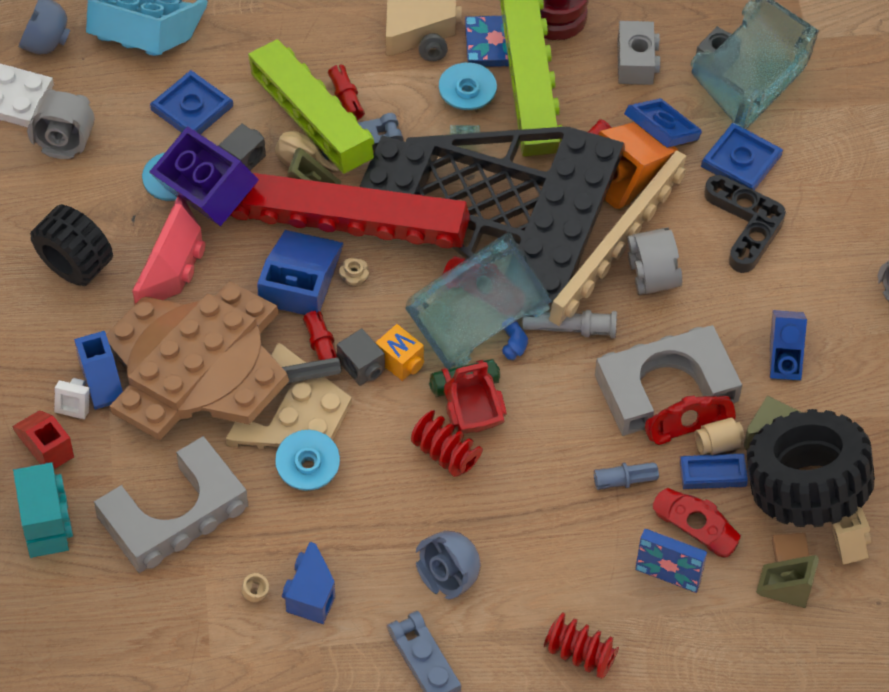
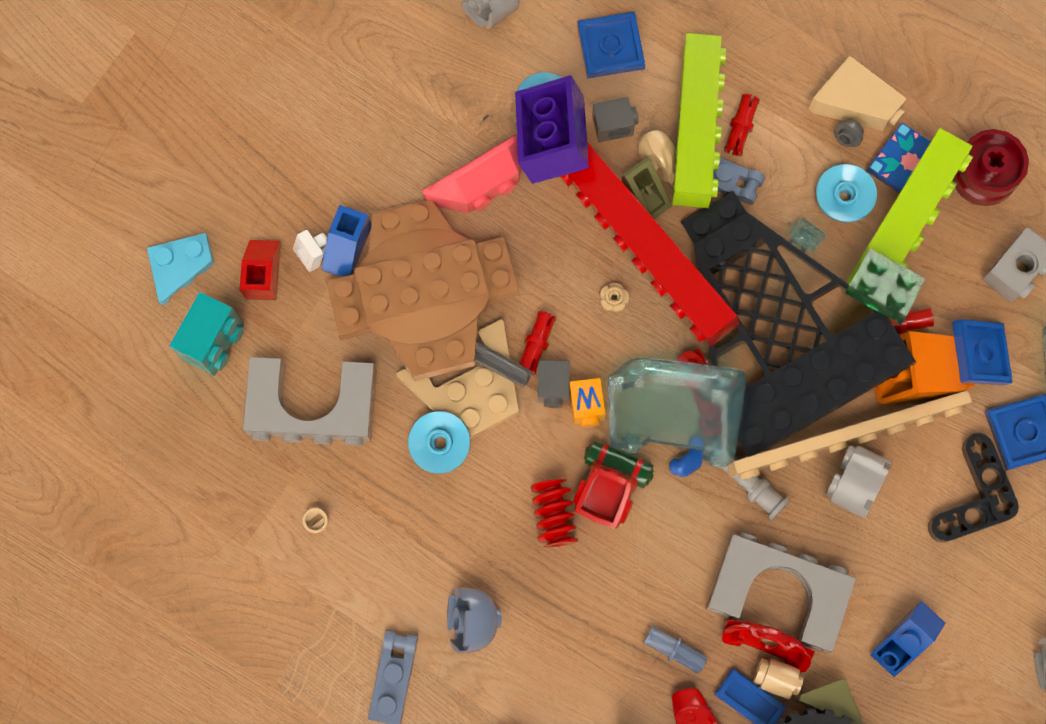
camera: 45 degrees right, 20 degrees up
(71, 245) = (404, 115): black tyre -> none
(299, 272) = (569, 266): blue slope -> none
(312, 587) = (357, 553): blue slope -> none
(556, 112) = (885, 286): none -> clear green plate

